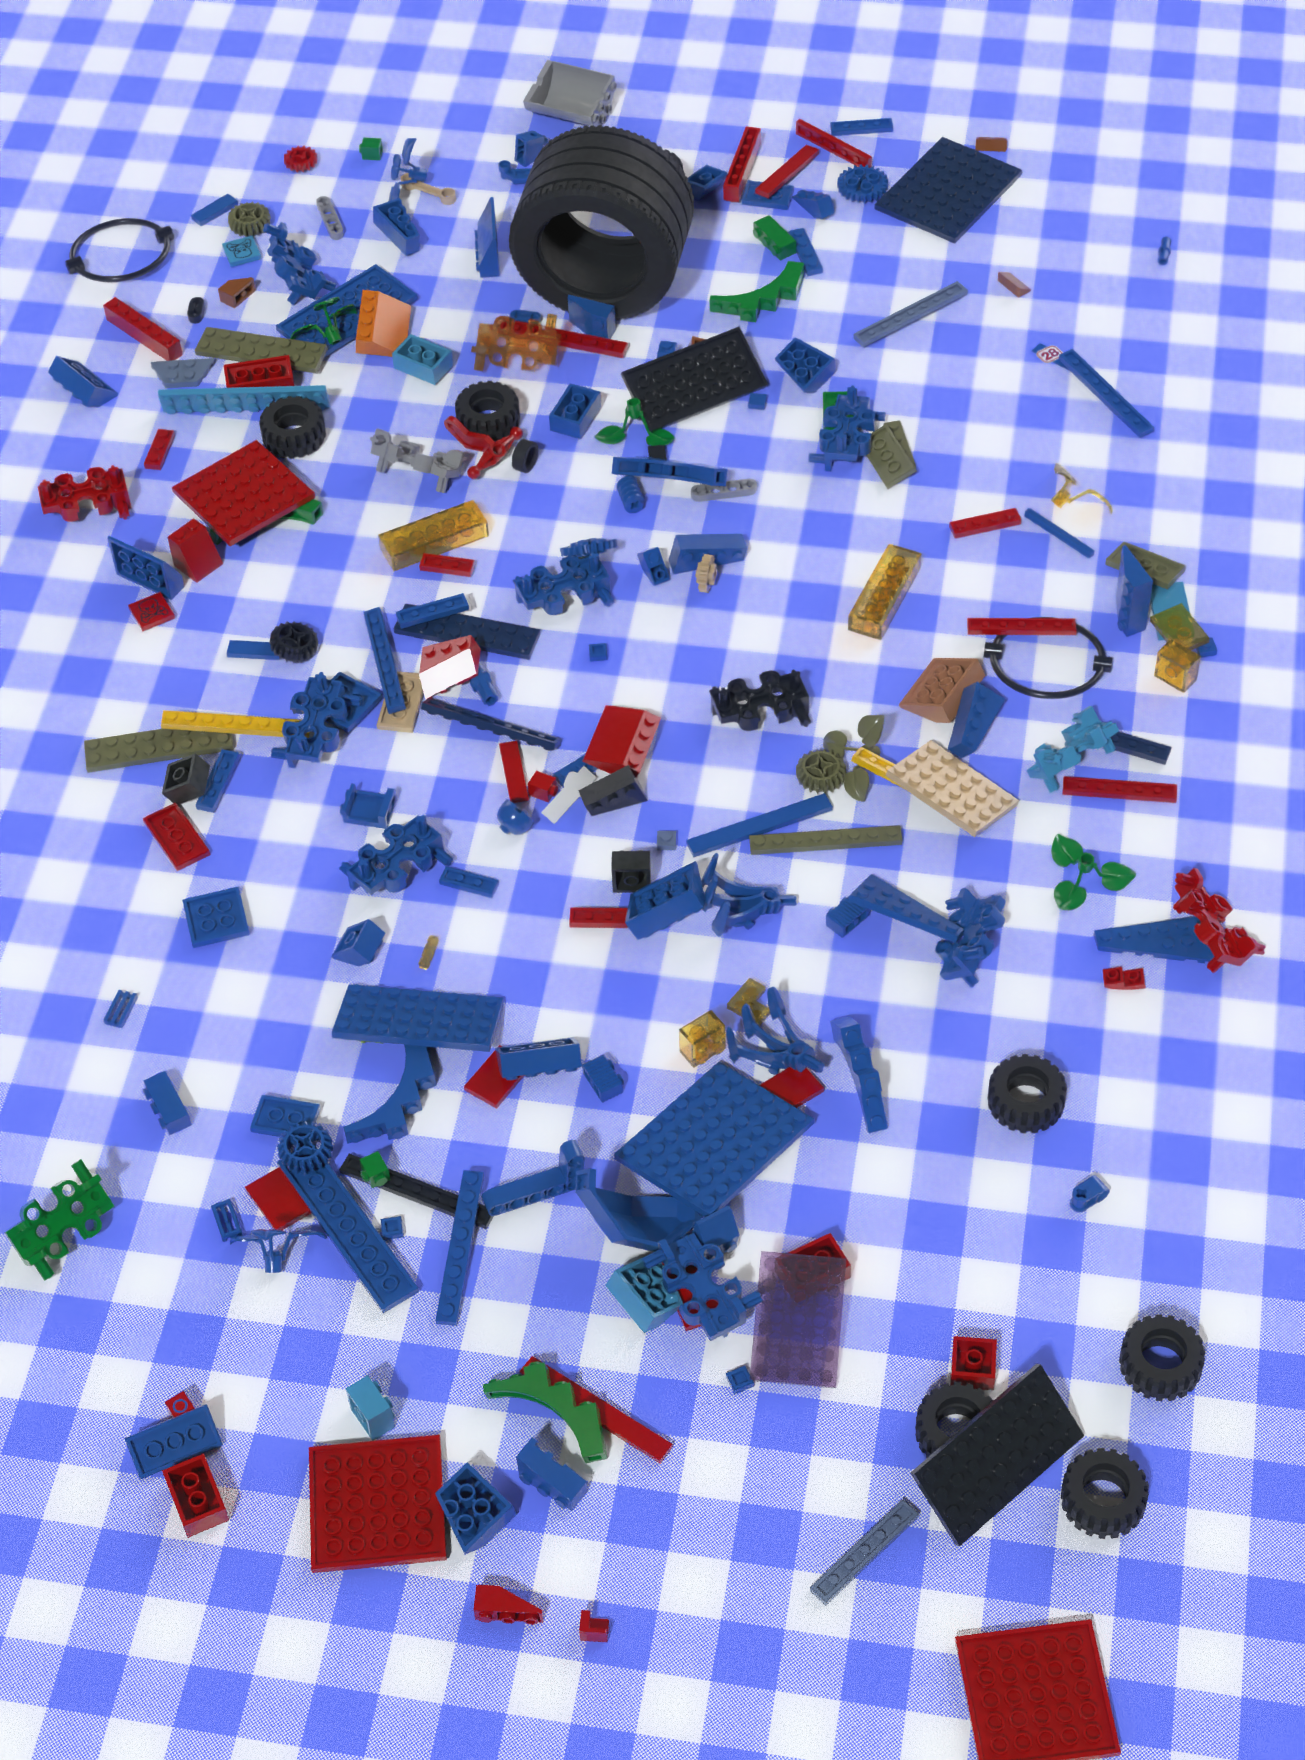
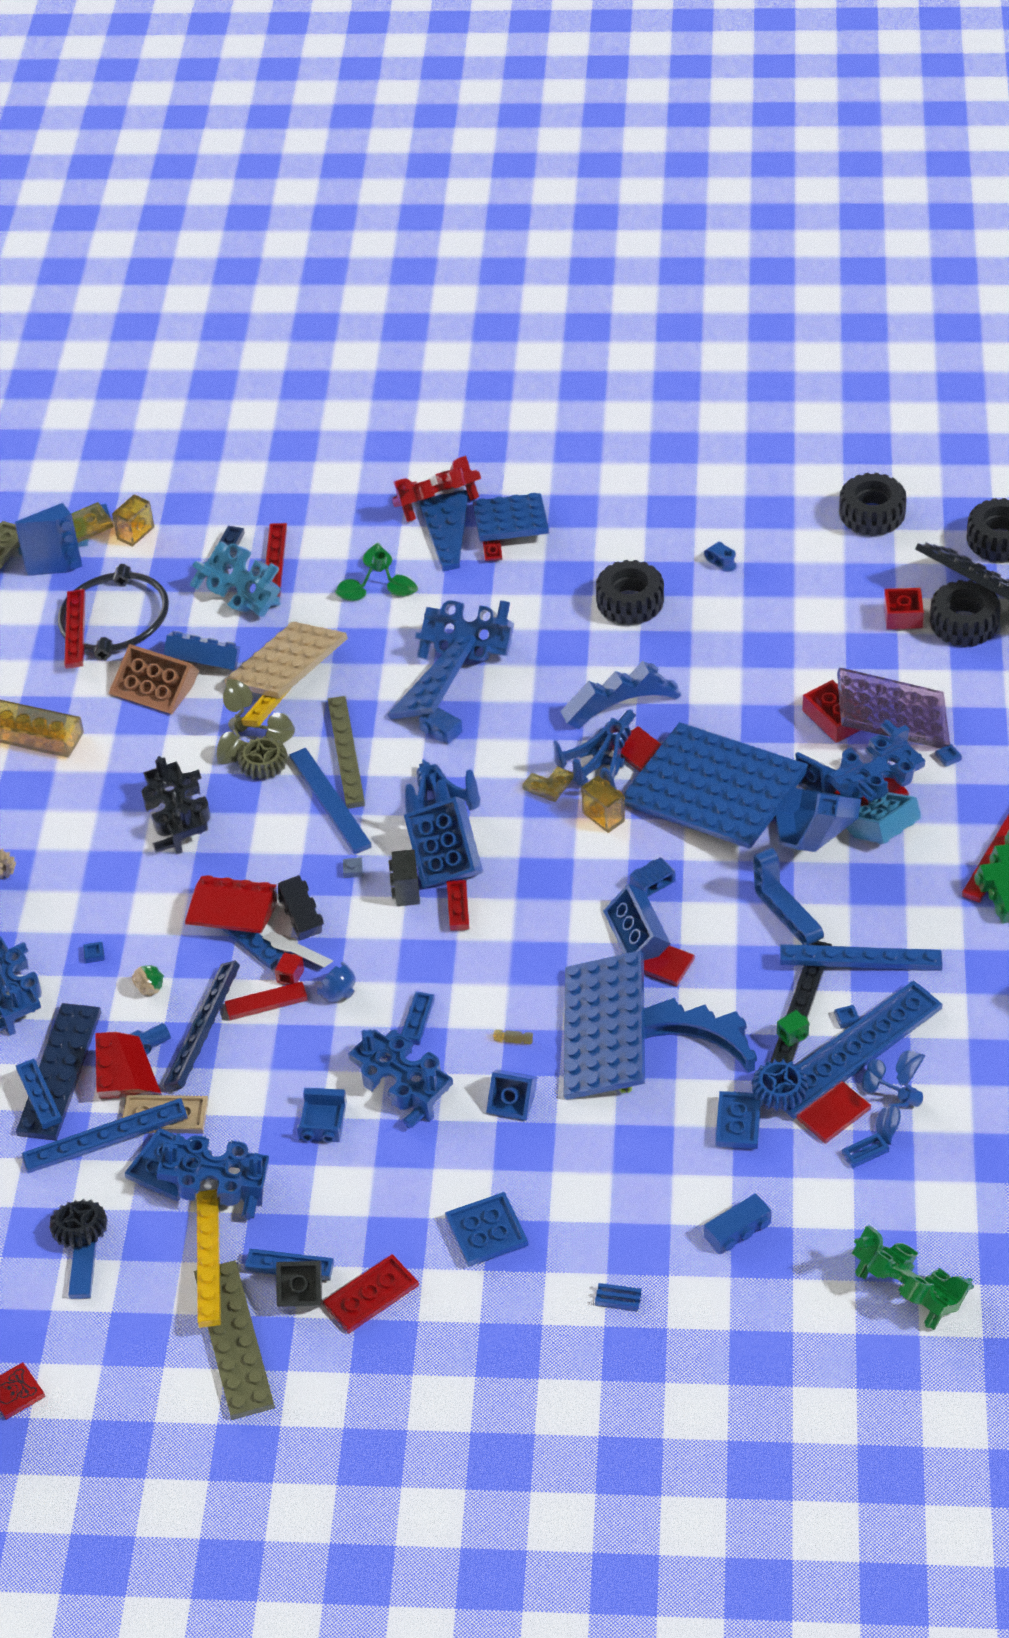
camera: 95 degrees left, 5 degrees down
(548, 684) = (148, 979): none -> piece
(1168, 995) = (510, 517): none -> blue plate

